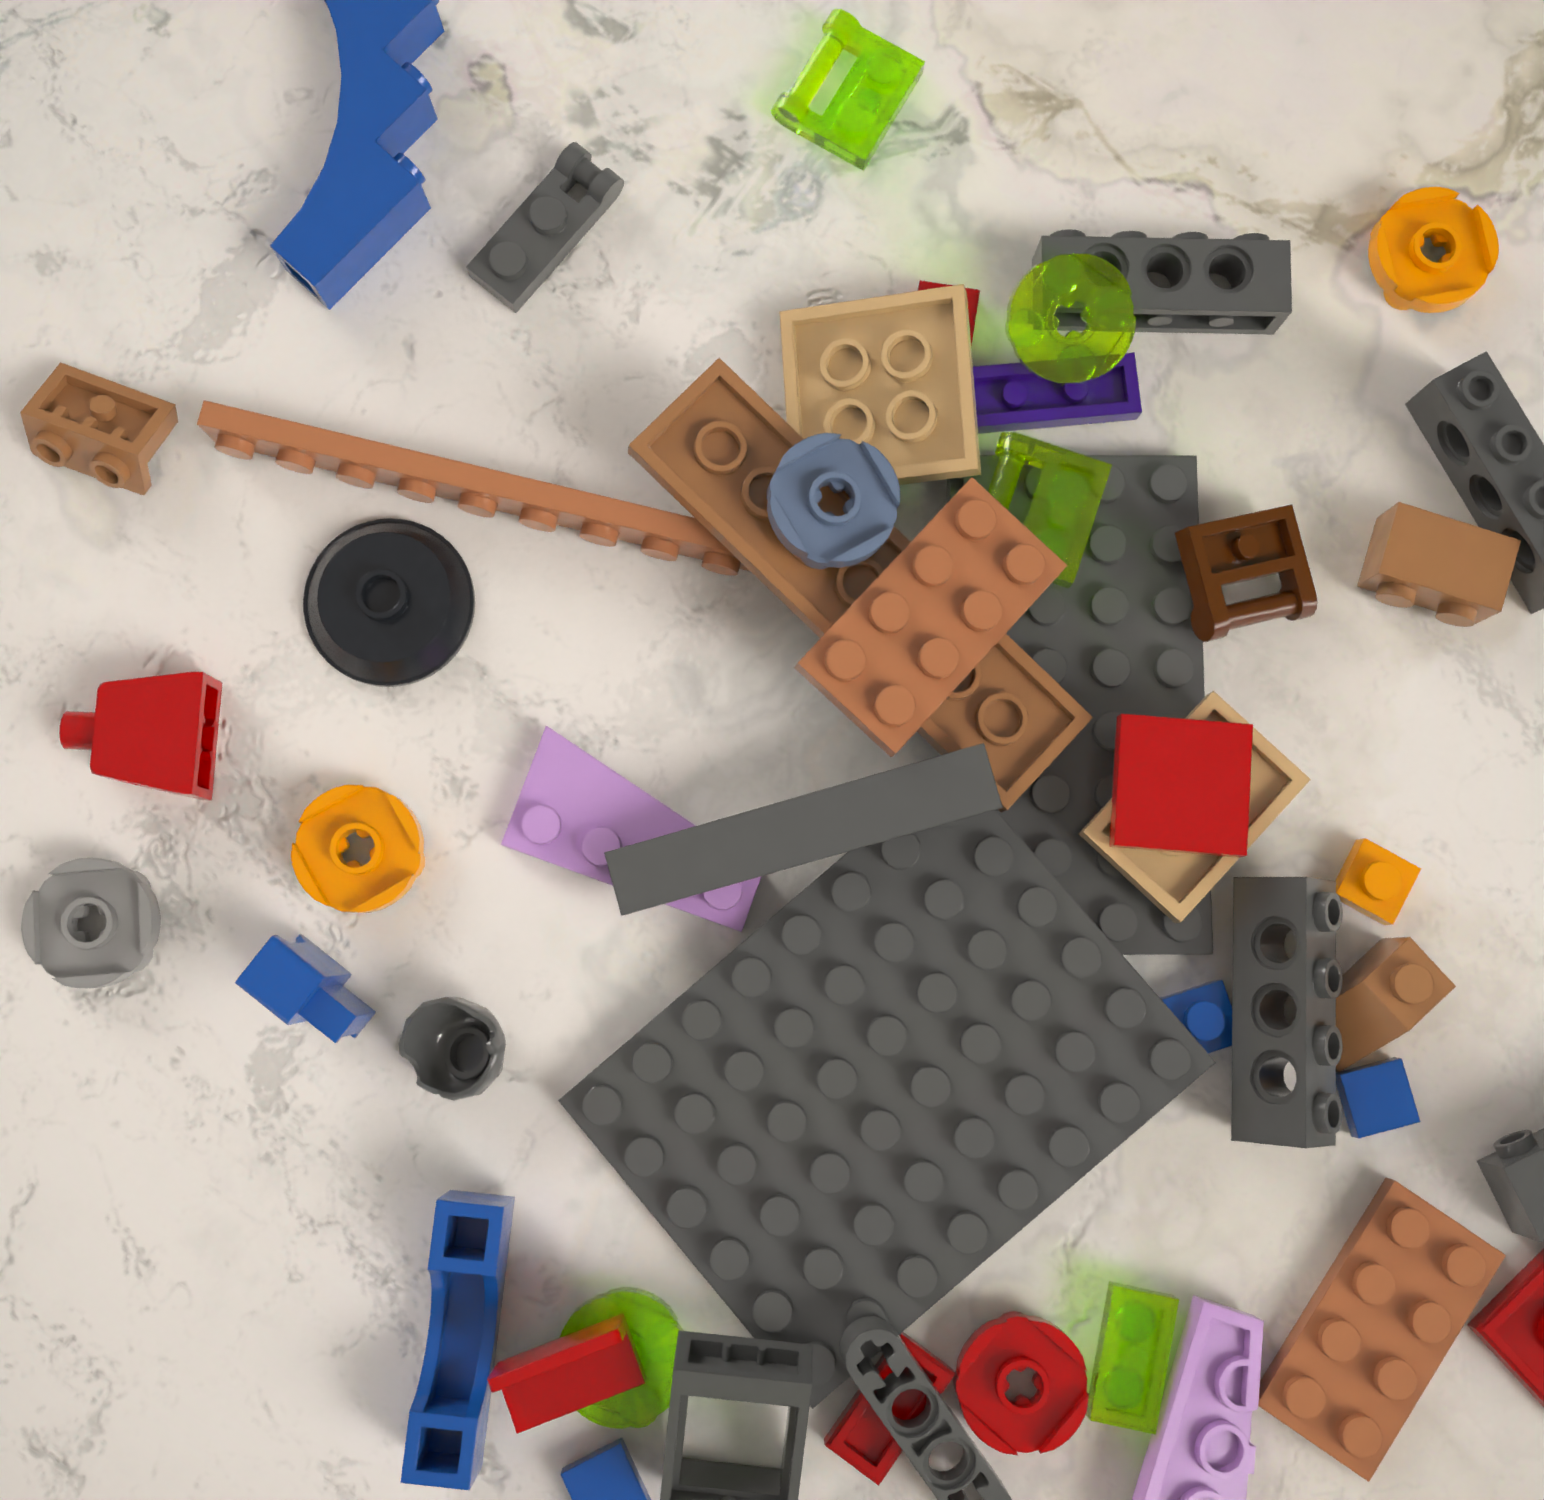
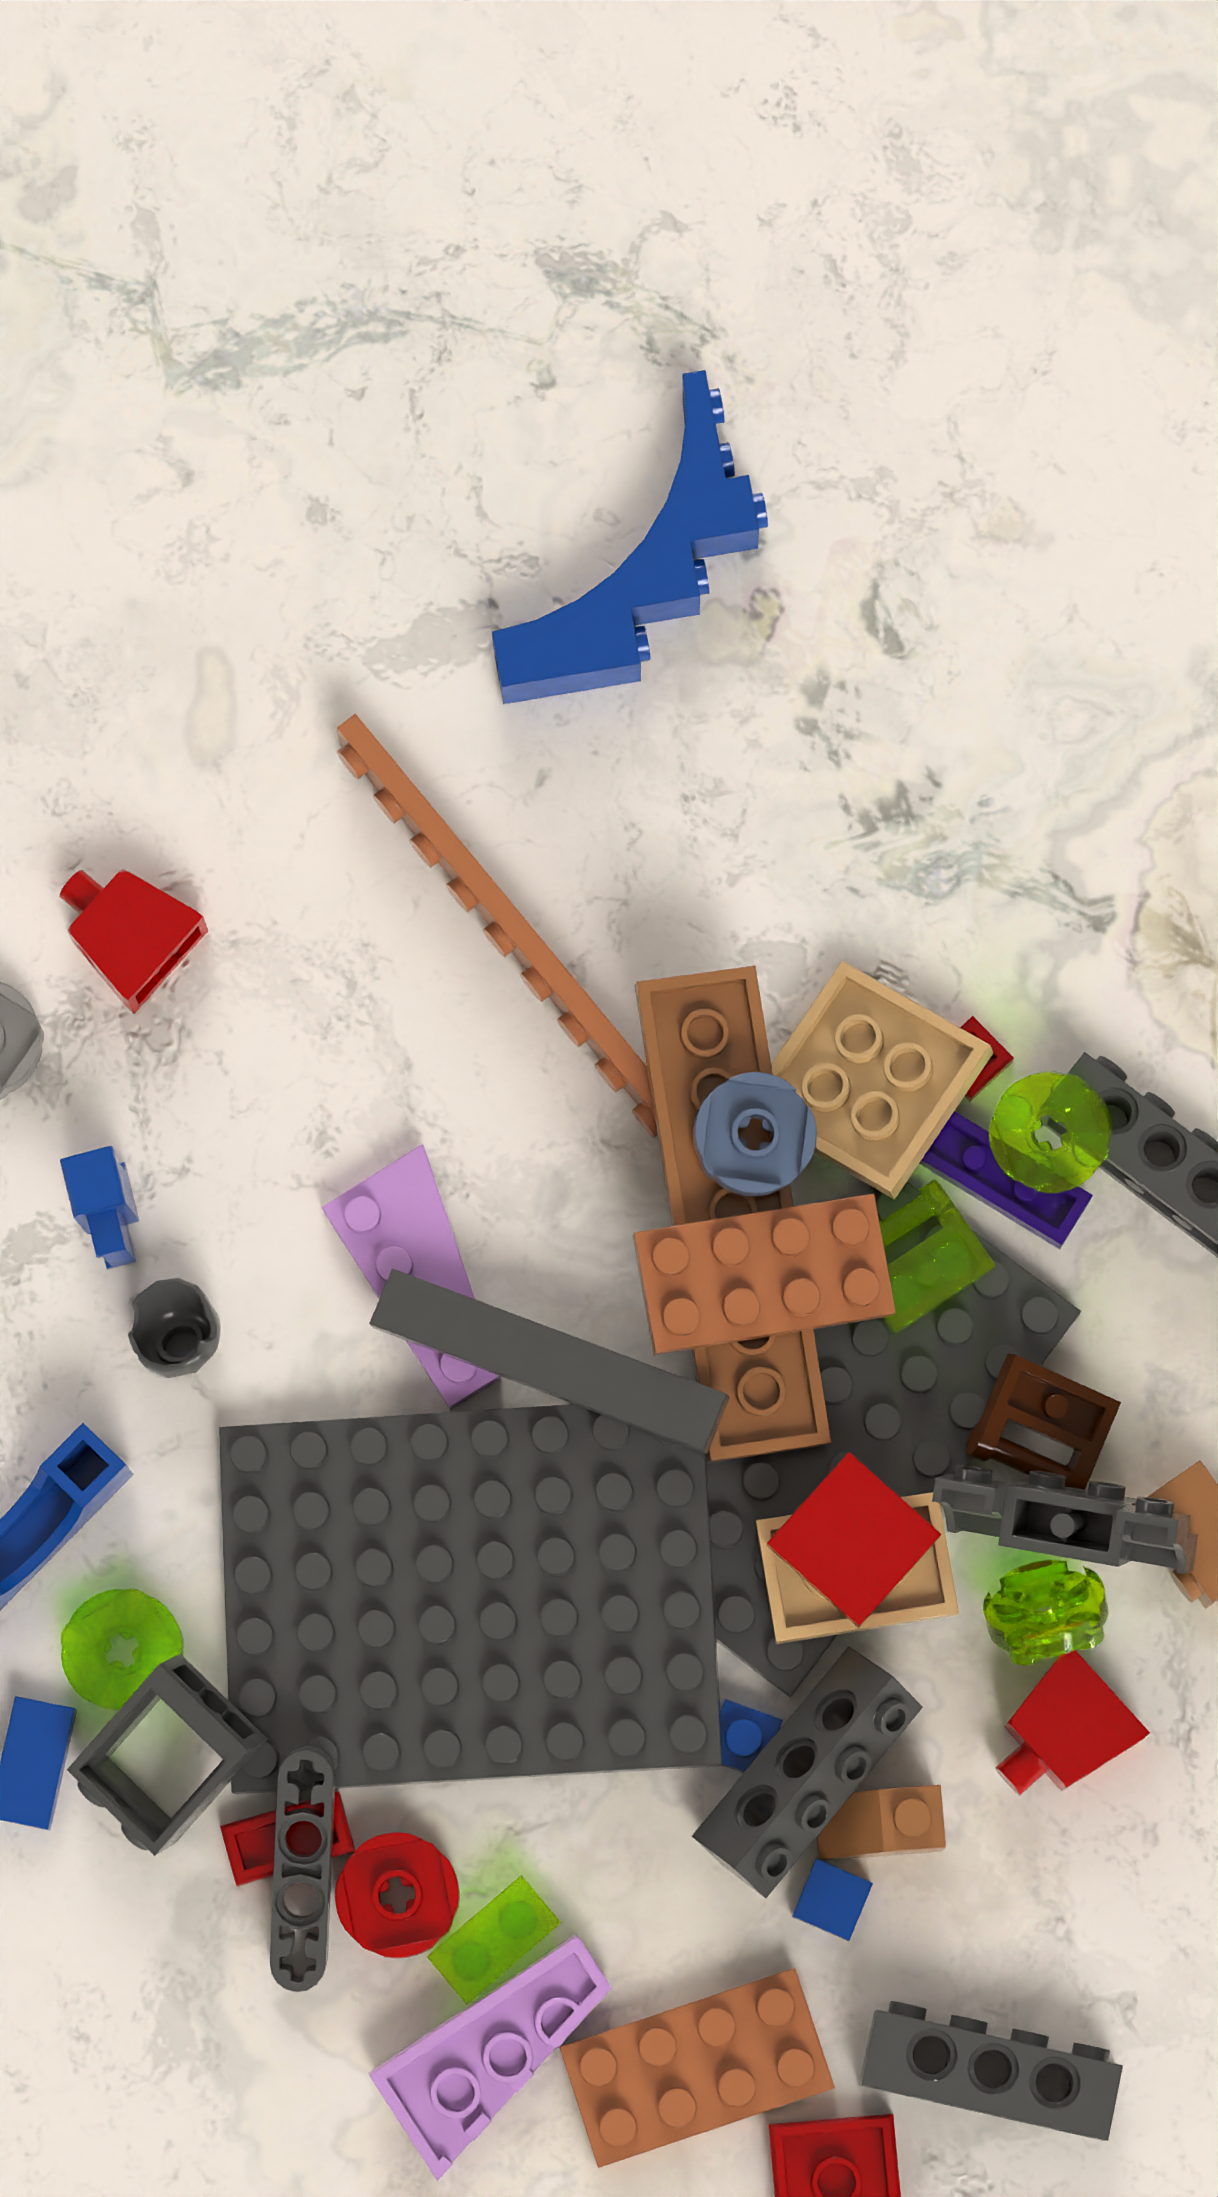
camera: 45 degrees right, 5 degrees down
(97, 427) = (262, 672): medium nougat bracket -> none
(323, 839) = (193, 1105): light orange plate -> none
(389, 602) = (377, 963): black piece -> none
(544, 228) = (714, 762): dark grey plate -> none
(568, 1373) = (80, 1622): red panel -> none
(866, 98) = (1045, 842): clear neon green plate -> none
(1347, 629) = (1065, 1520): none -> dark grey bracket
(1375, 881) = (961, 1740): light orange plate -> none
(1391, 746) = (1072, 1623): none -> clear neon green plate
(1457, 804) = (1068, 1727): none -> red torso

